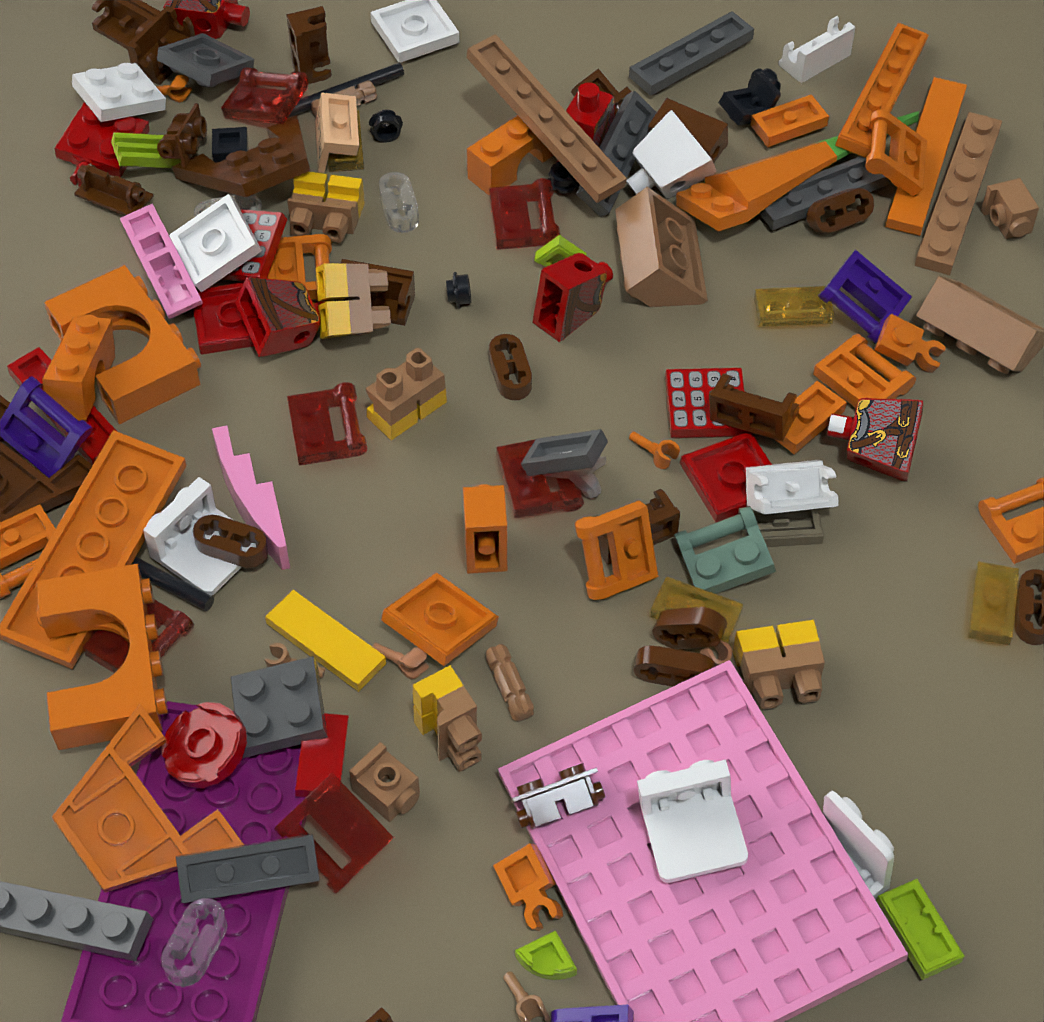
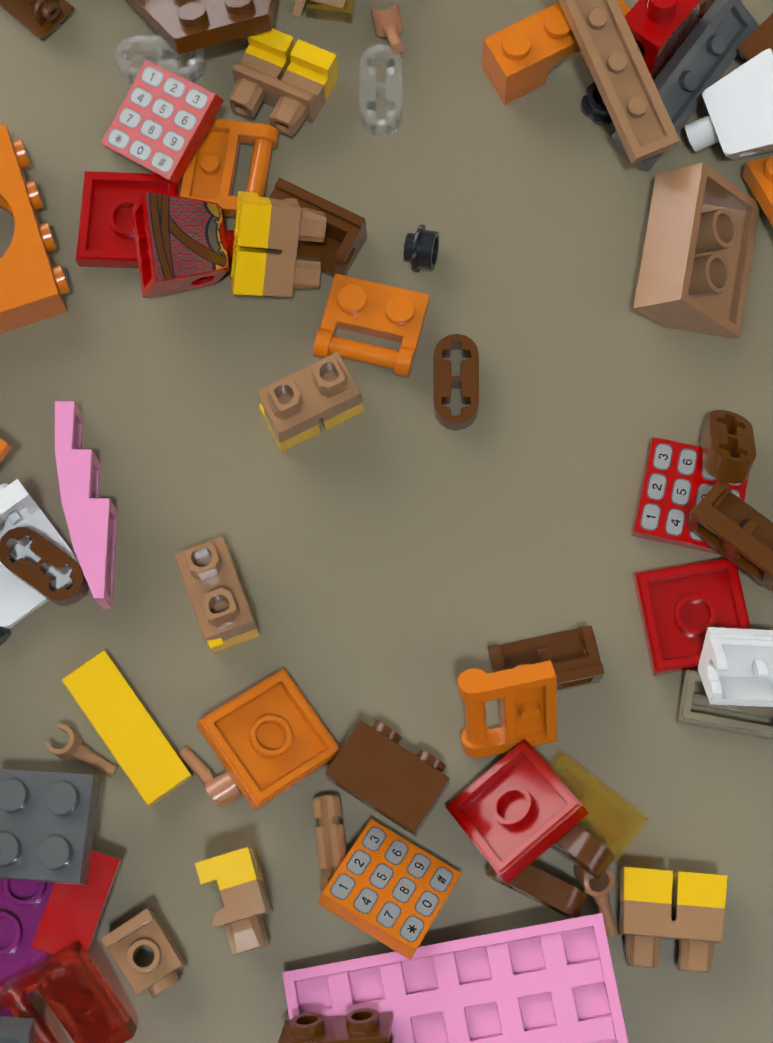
camera: 20 degrees right, 20 degrees up
(161, 261) = (57, 120): bright pink slope -> none
(215, 243) = (124, 116): white plate -> none
(314, 429) = (189, 410): clear red plate -> none
(372, 530) = (216, 594): none -> medium nougat hips
(391, 161) = (389, 25): none -> nougat hand
(443, 338) = (373, 311): none -> orange plate
(485, 528) = (352, 633): orange brick -> none
(512, 218) = (522, 142): clear red plate -> none
(531, 493) = (429, 559): clear red plate -> none
(539, 619) = (389, 776): none -> reddish brown brick
(555, 251) = (566, 220): lime tile -> none
(563, 691) = (389, 888): none -> tile
(569, 294) = (561, 296): red torso -> none
(569, 457) = (481, 557): dark grey piece -> none
(643, 616) = (516, 811): none -> red tile
(658, 450) = (606, 551): orange hand -> none
(722, 358) = (728, 446): none -> reddish brown beam
(730, 563) = (648, 751): sand green plate -> none

